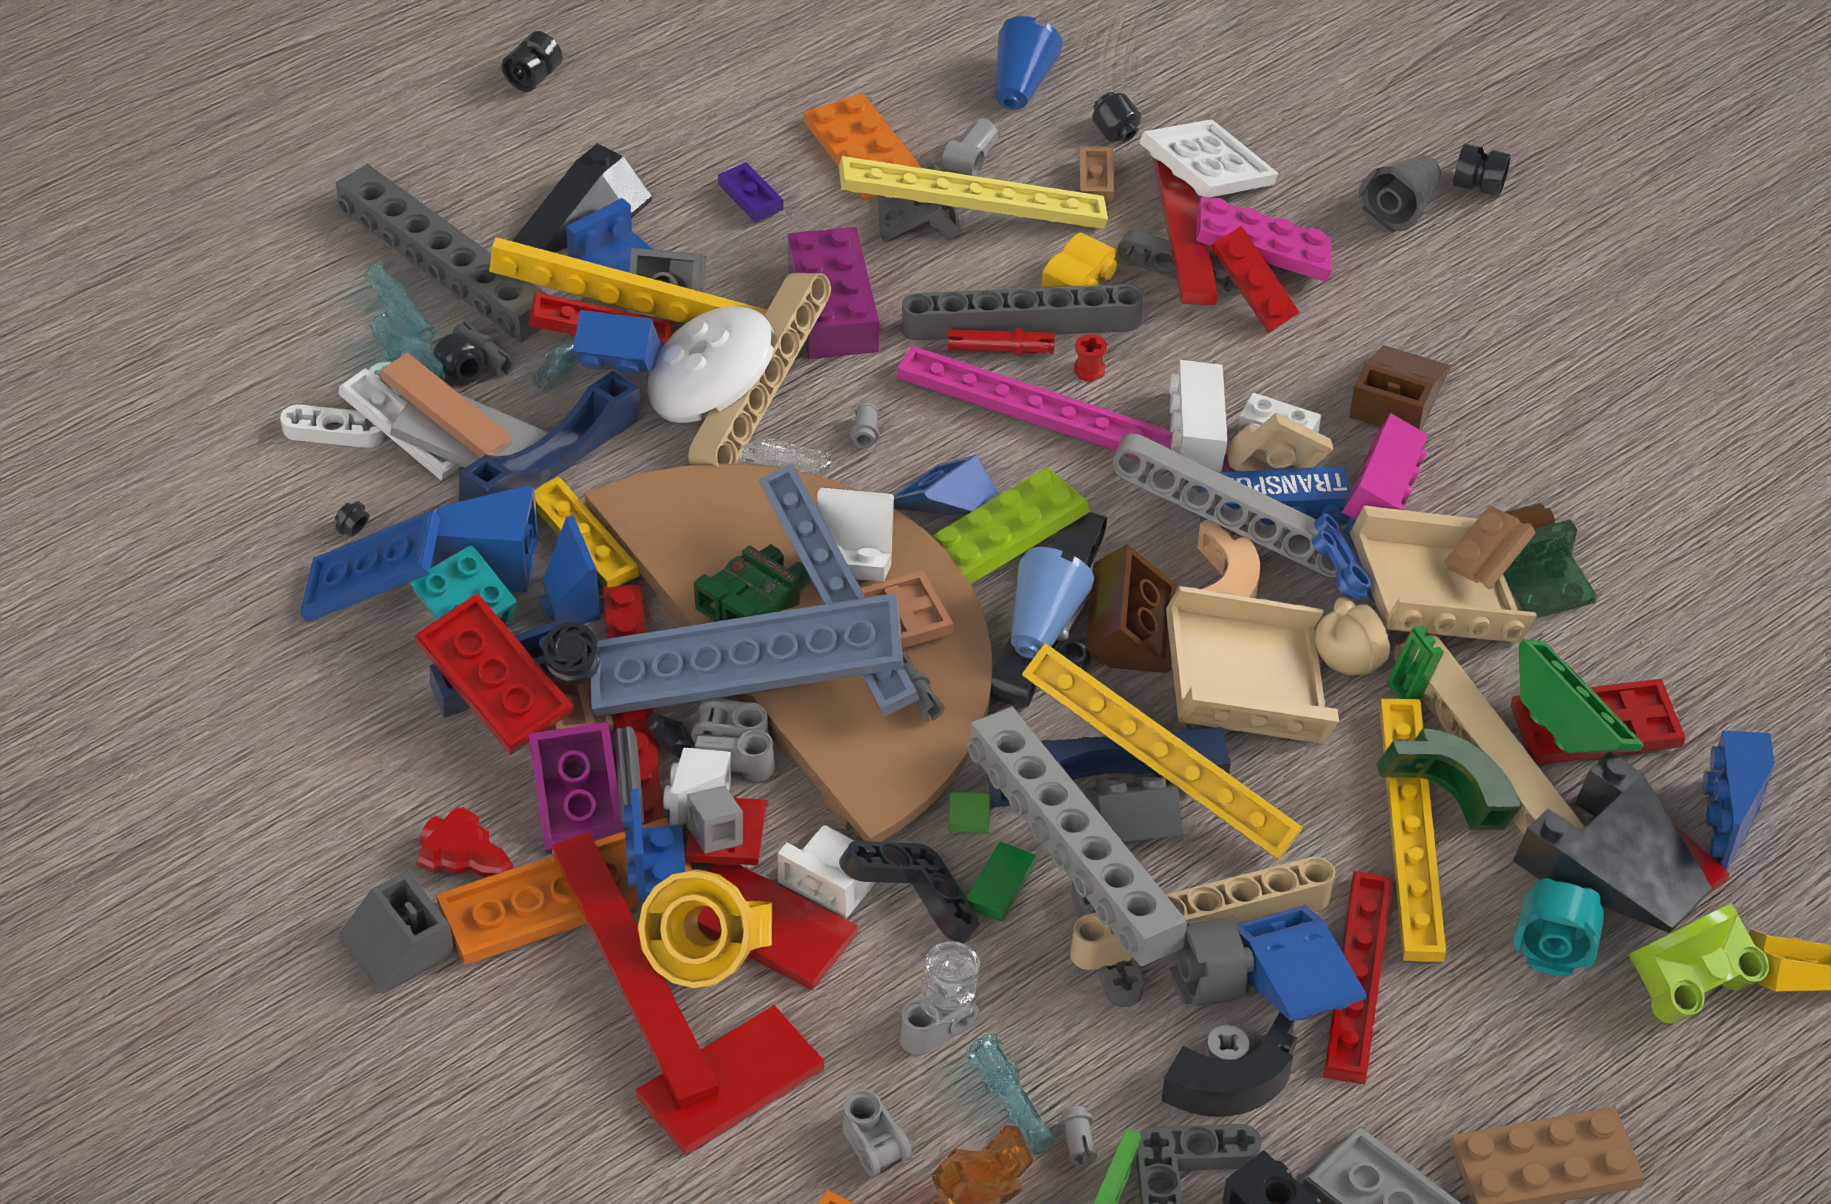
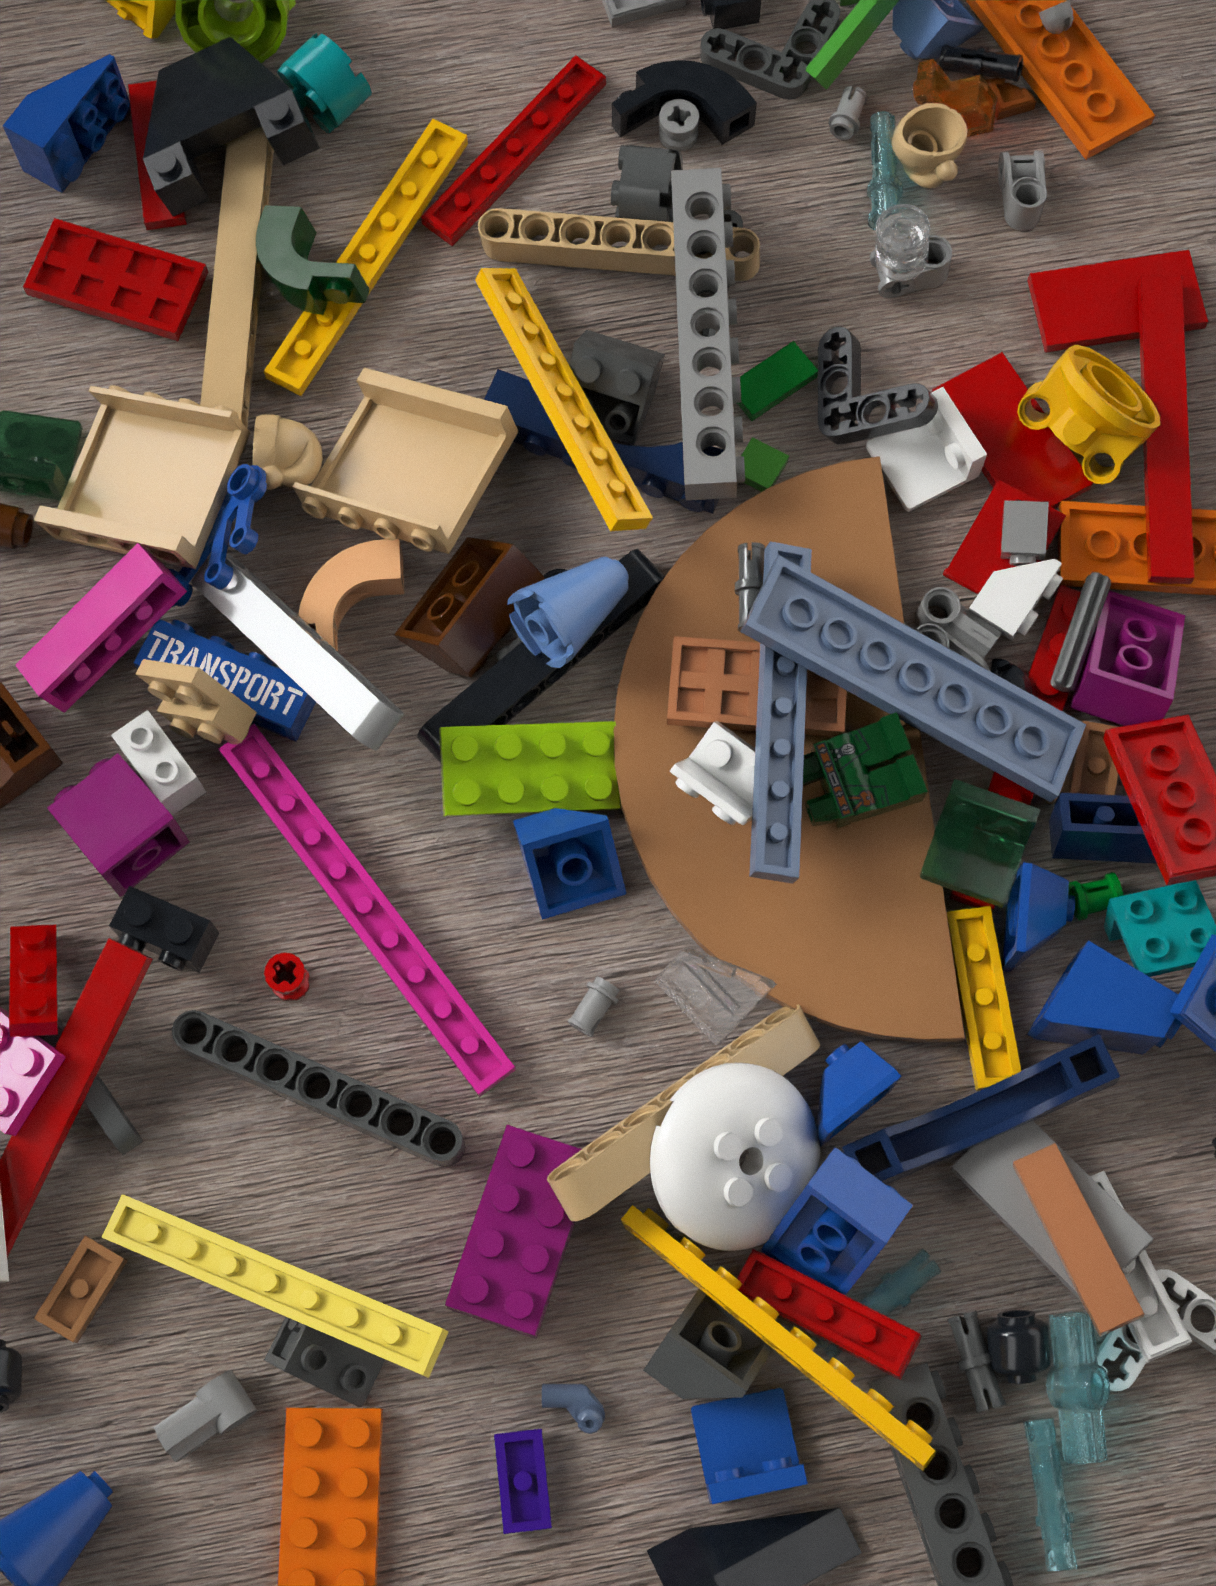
camera: 150 degrees left, 25 degrees up
(529, 618) = (1094, 895): none -> green bush
(572, 654) = (1091, 774): black wheel -> none
(636, 589) = (979, 843): none -> clear green bracket
(648, 430) = (850, 1087): none -> blue slope
(655, 850) = (1101, 517): blue bracket -> none
(741, 241) = (578, 1401): none -> sand blue arm
(979, 1107) = (929, 142): none -> tan piece
(1001, 341) = (357, 1052): red pin -> none
(1080, 264) = (208, 1127): yellow brick -> none
(1194, 341) = (164, 929): none -> black brick
(1198, 413) = (234, 809): white brick -> none
(1275, 369) = (118, 823): none -> magenta slope
(1299, 964) = (578, 139): blue slope -> none
(1418, 672) = (248, 386): green tile -> none
(1489, 547) = (75, 473): medium nougat plate -> none
(1568, 704) = (140, 254): green wedge -> none

